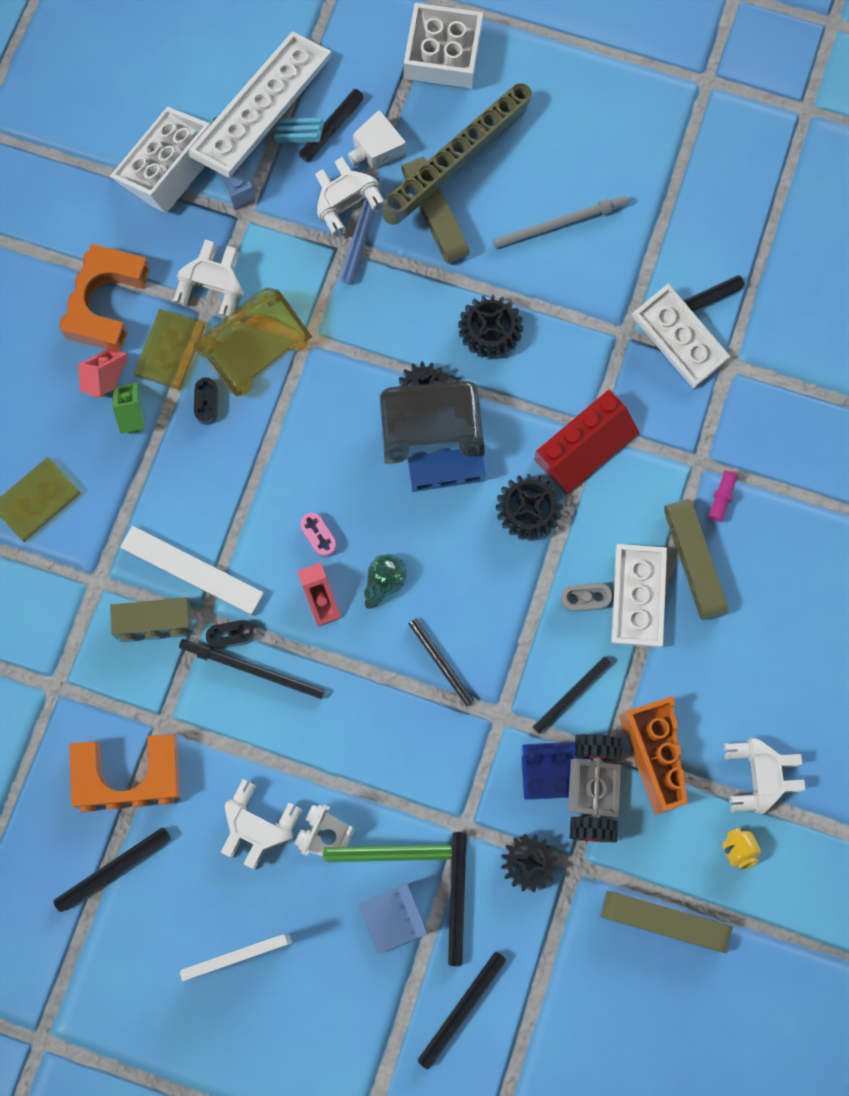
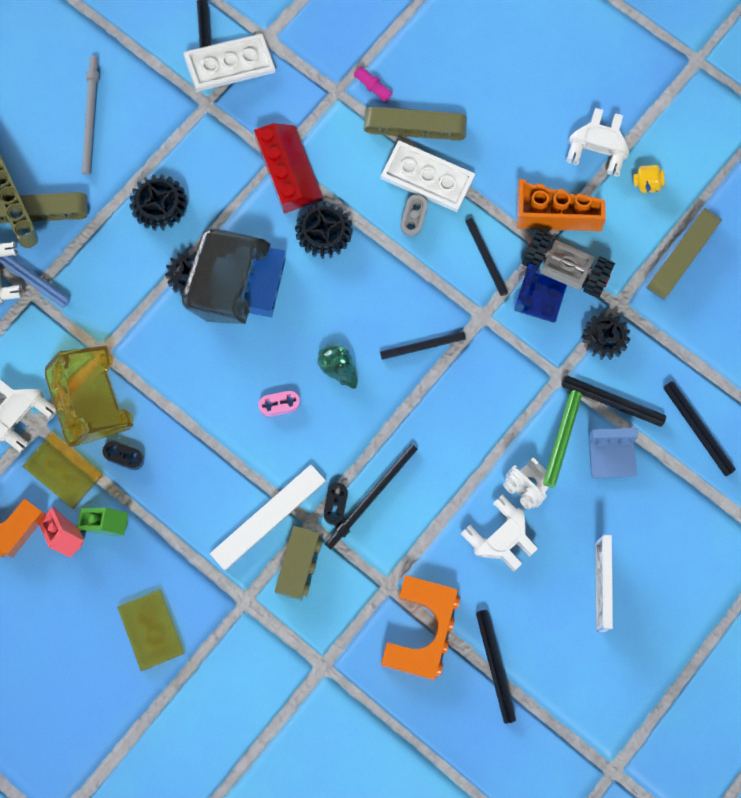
camera: 70 degrees left, 0 degrees up
(319, 594) = (330, 419): coral slope -> none

